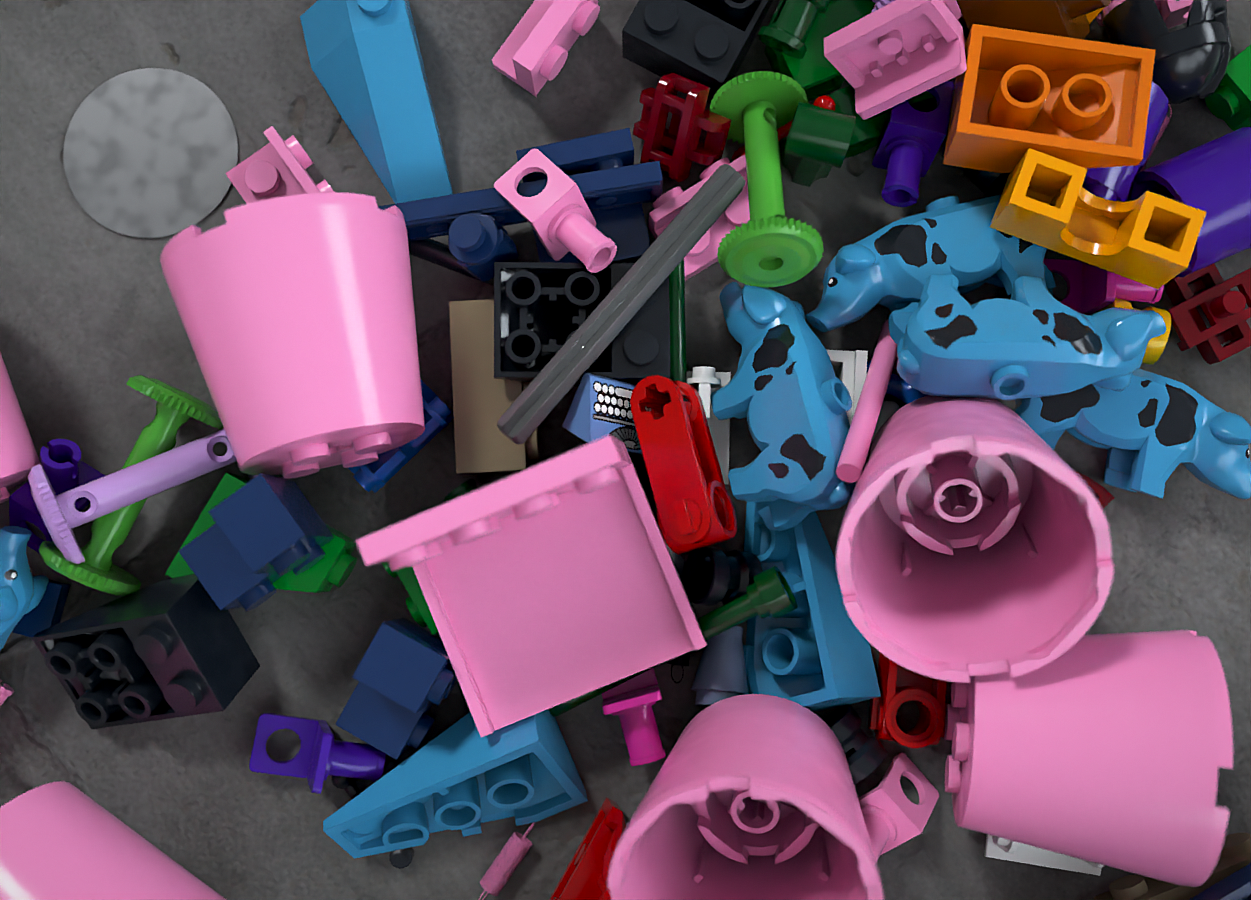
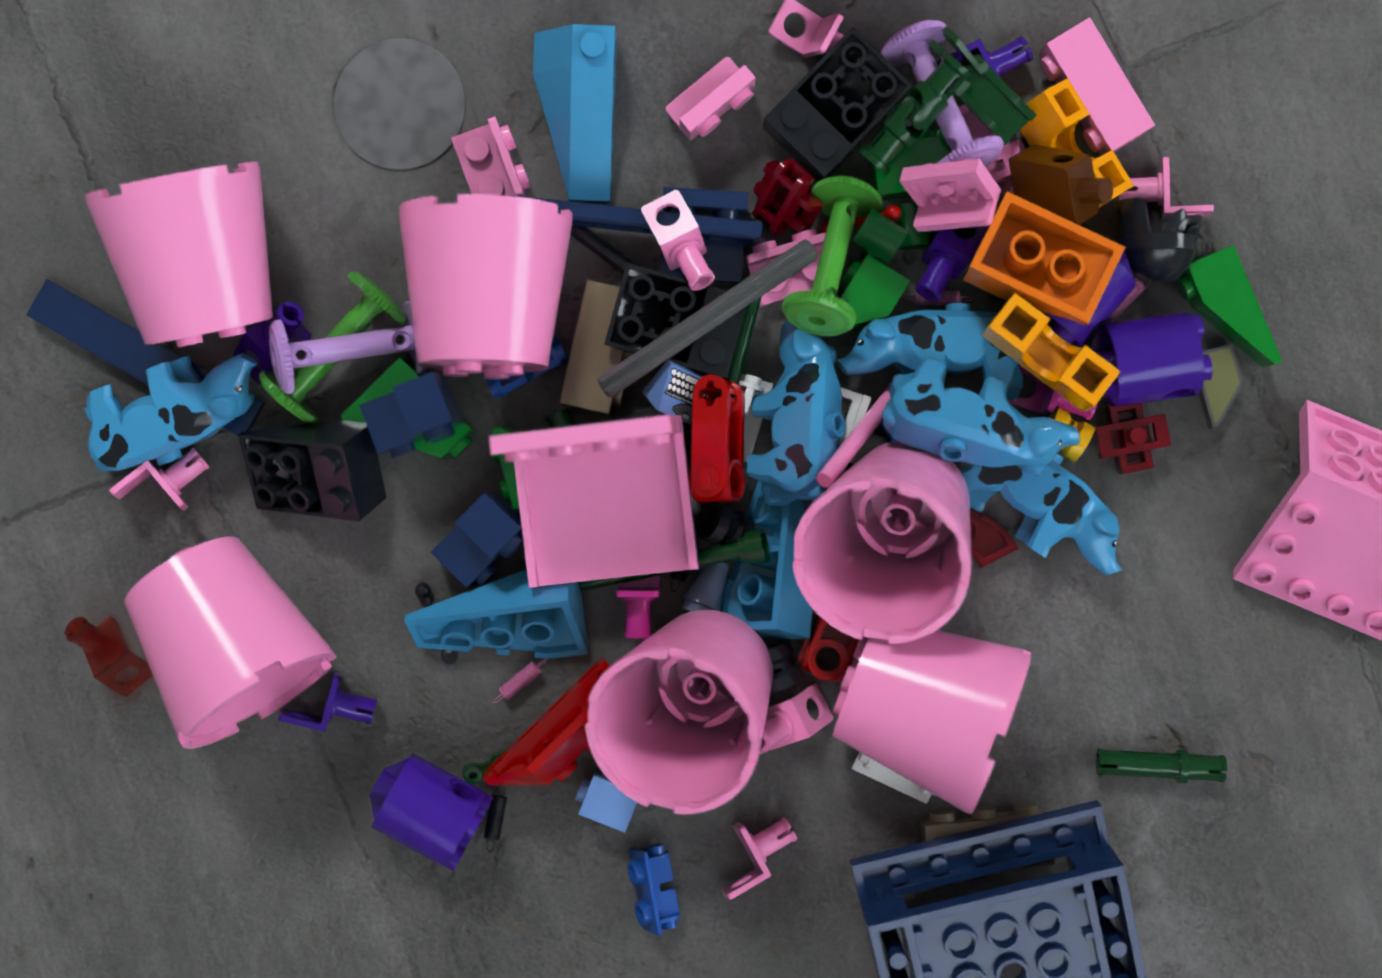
camera: 20 degrees right, 5 degrees up
(317, 755) = (410, 569): dark purple bracket -> none
(478, 243) = (620, 246): dark blue arm -> none
(832, 207) = (872, 289): none -> green slope
(890, 212) = (947, 297): none -> bright pink piece

